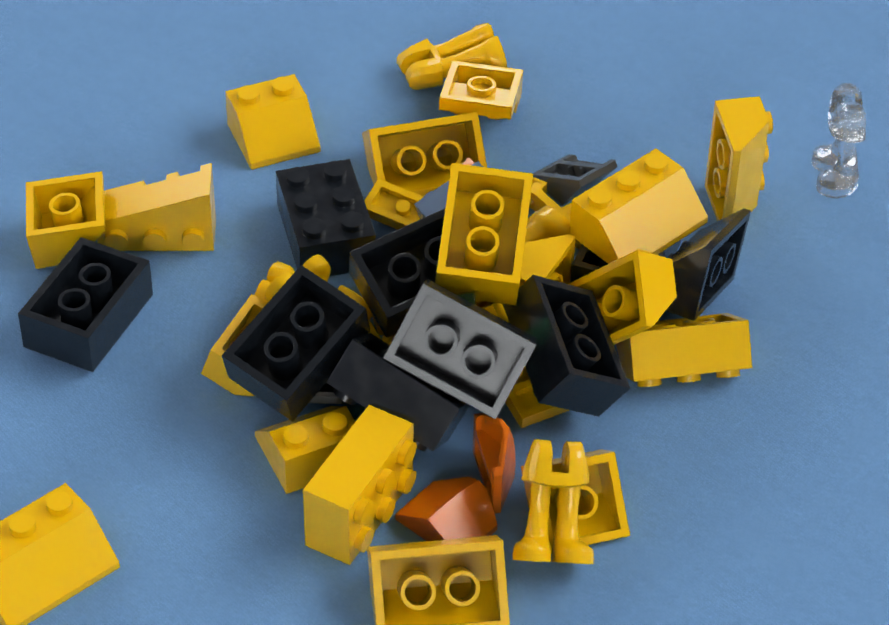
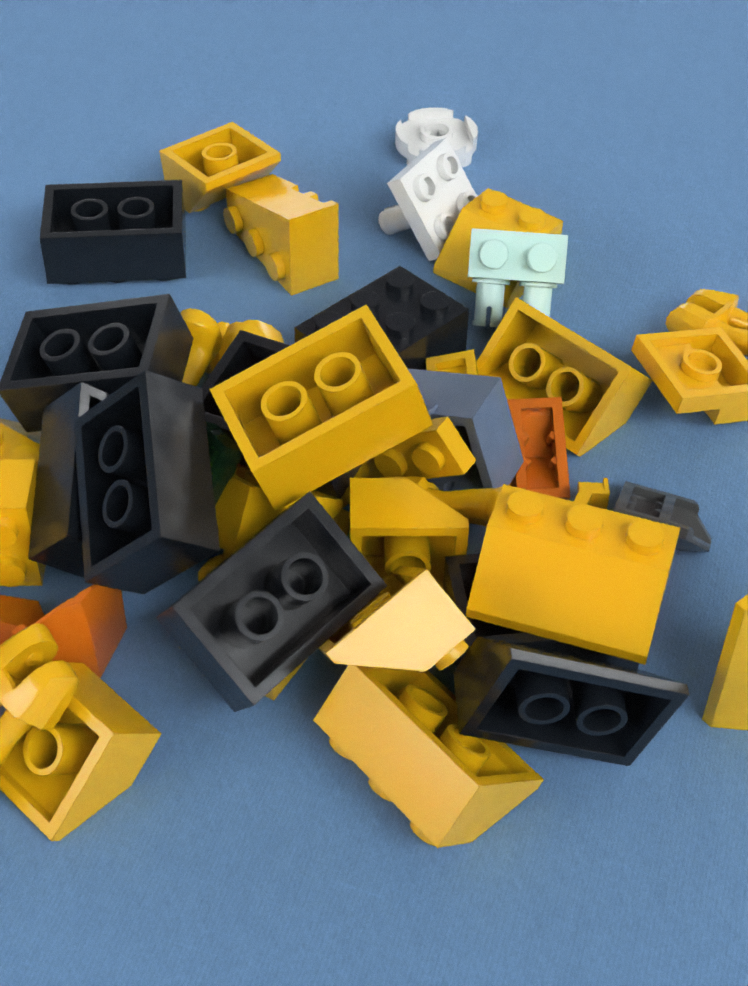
camera: 60 degrees right, 0 degrees up
(89, 98) = (434, 124): none -> white plate
(204, 123) = (428, 197): none -> white plate
(320, 111) = (508, 256): none -> light aqua brick

